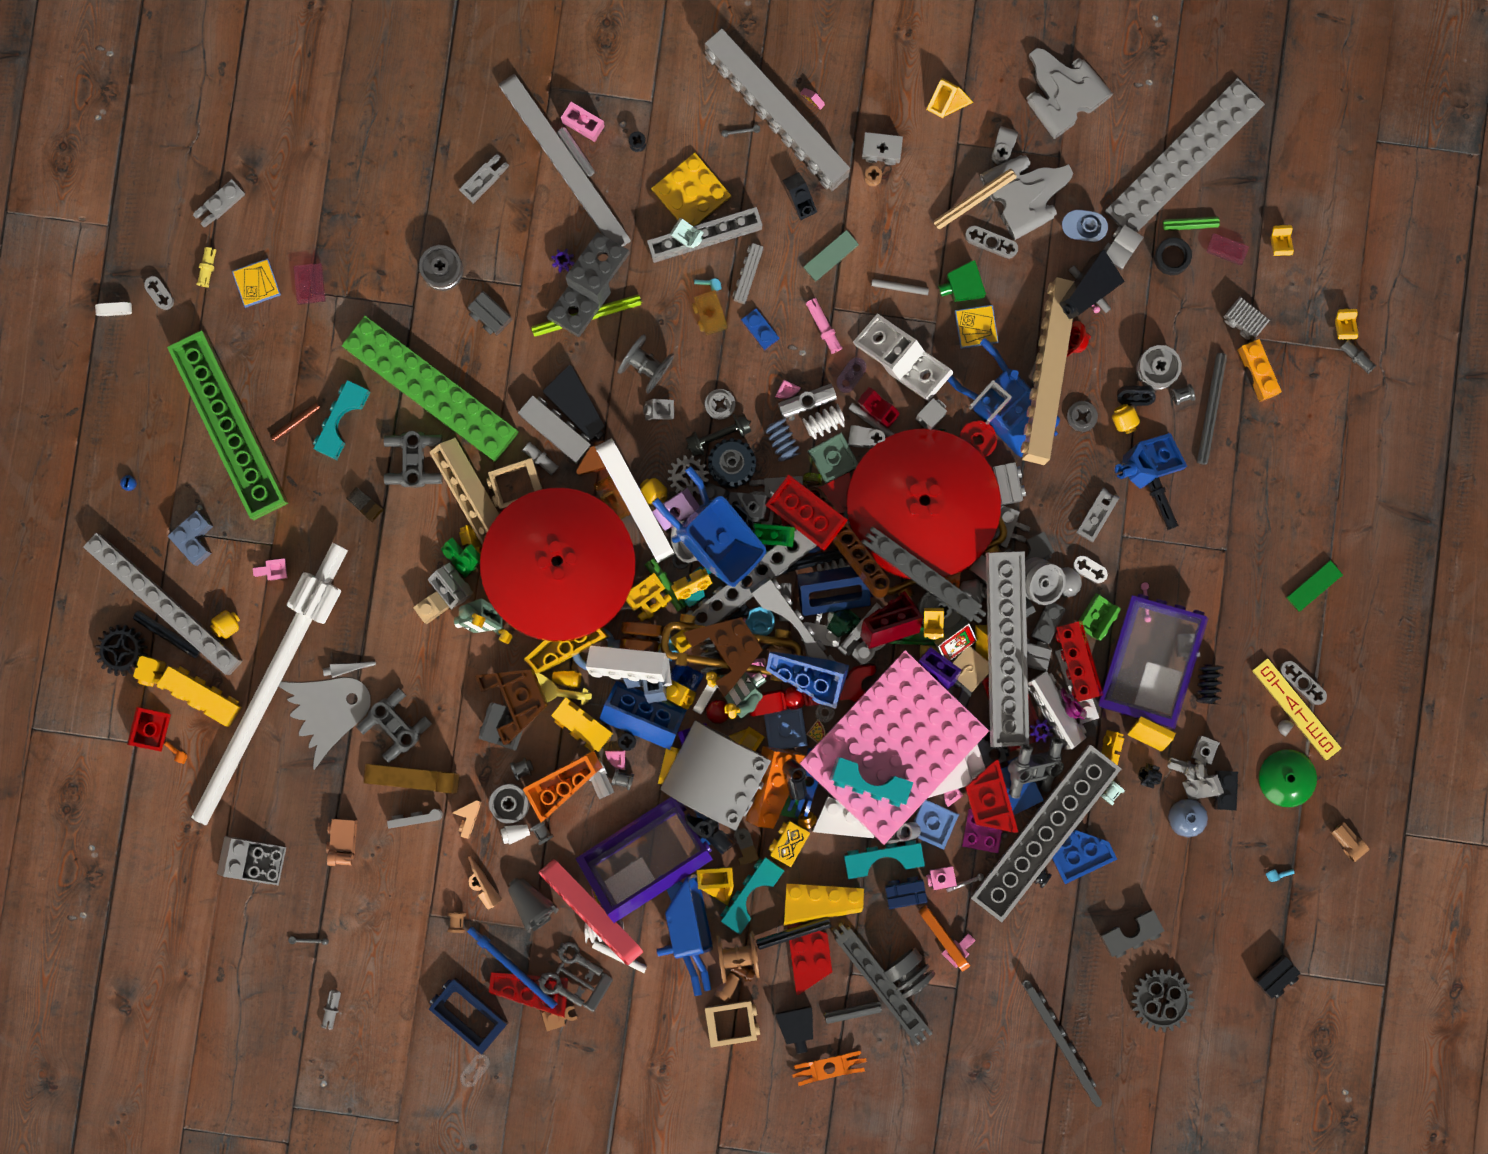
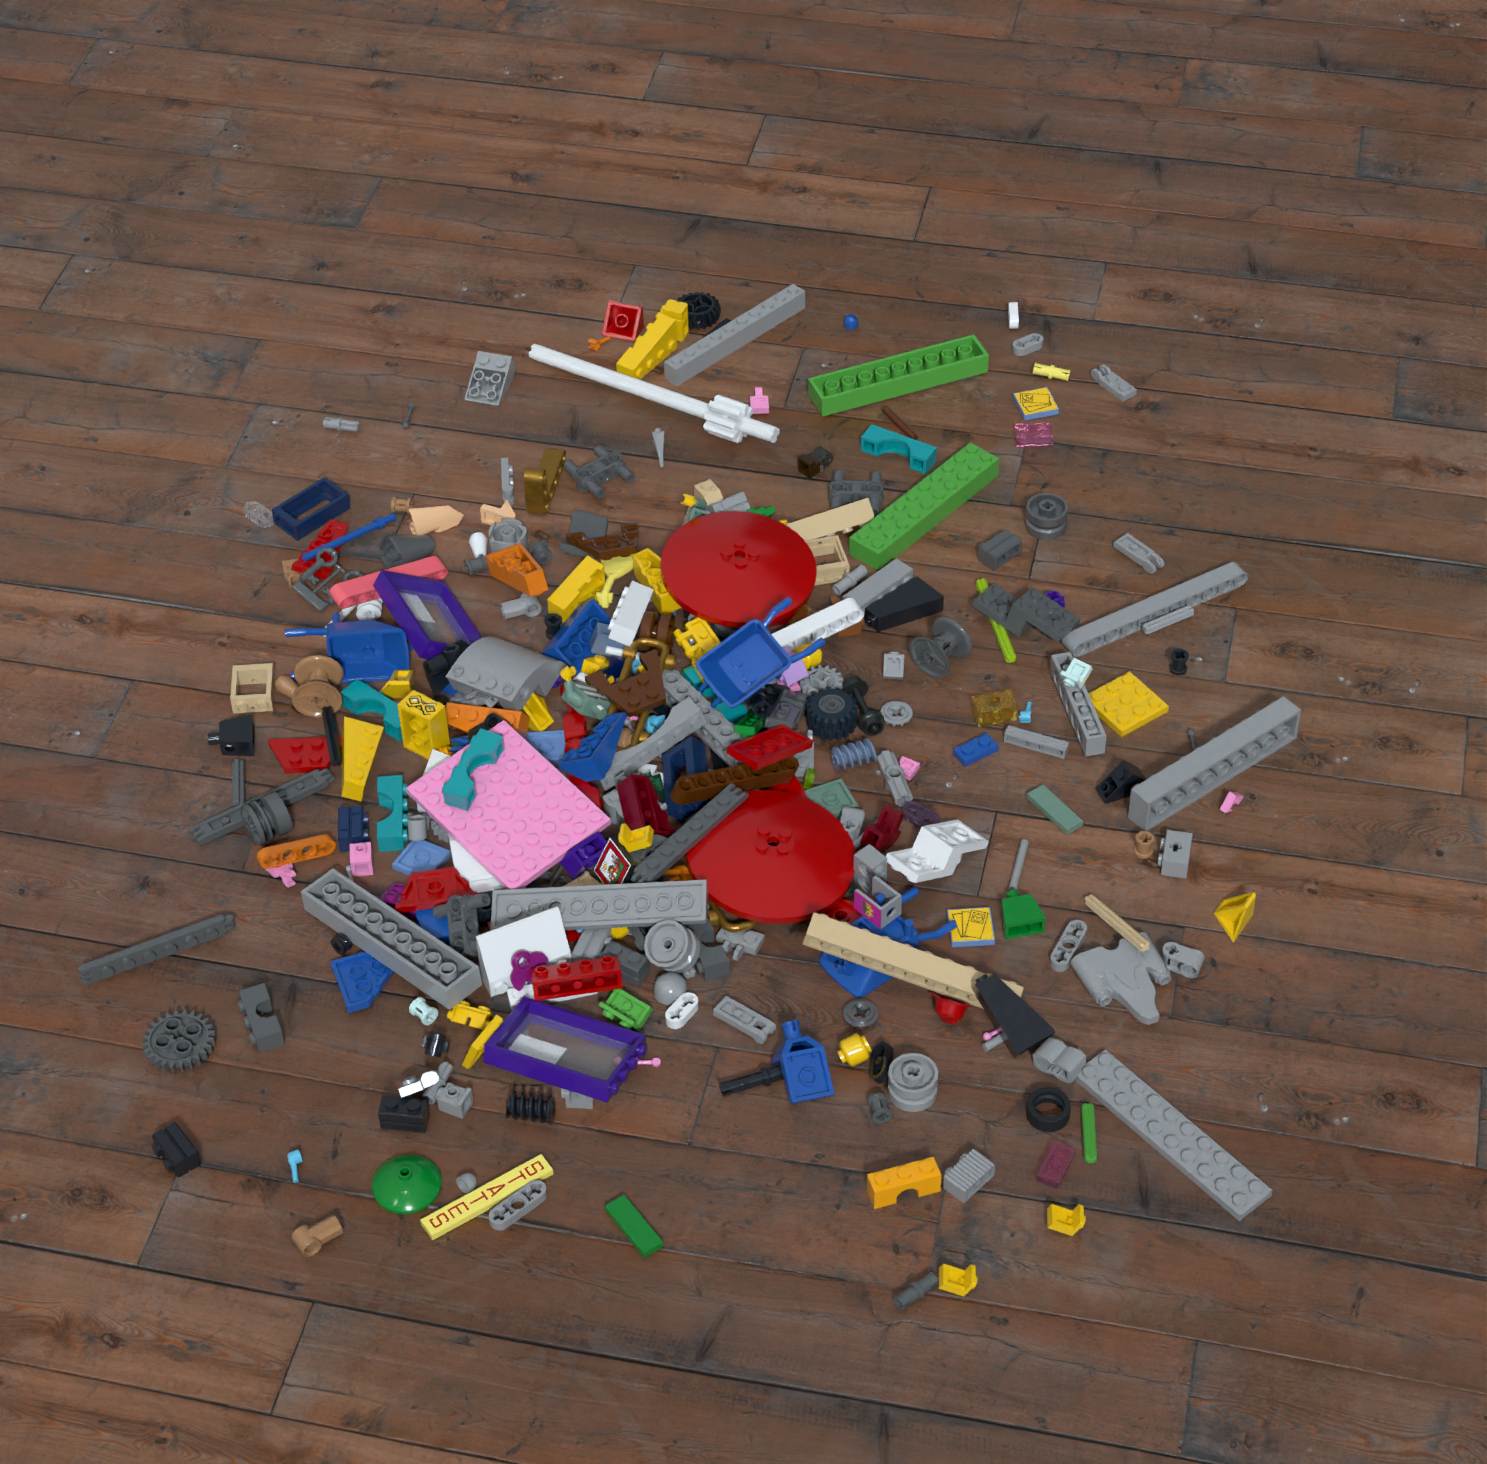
camera: 95 degrees right, 40 degrees down
(188, 537) = (794, 350): sand blue brick -> none
(225, 624) = (711, 370): yellow head -> none
(327, 711) = (622, 434): light grey piece -> none
(342, 842) = (494, 434): nougat hinge -> none
(569, 679) = (620, 587): yellow cone -> none
(582, 121) = (1198, 618): bright pink brick -> none
(616, 758) = (538, 623): bright pink tile -> none
(622, 779) = (516, 622): dark grey bush -> none
(817, 1067) = (186, 752): orange piece -> none
(824, 422) = (870, 789): white piece -> none
(827, 332) = (969, 799): bright pink pin -> none
(1009, 483) = (786, 939): light grey brick -> none
(1066, 91) = (1246, 1022): light grey rock -> none
(1085, 225) = (1086, 1023): sand blue piece -> none
(1188, 818) = (379, 1078): sand blue cylinder -> none
(1212, 407) = (861, 1138): dark grey axle -> none

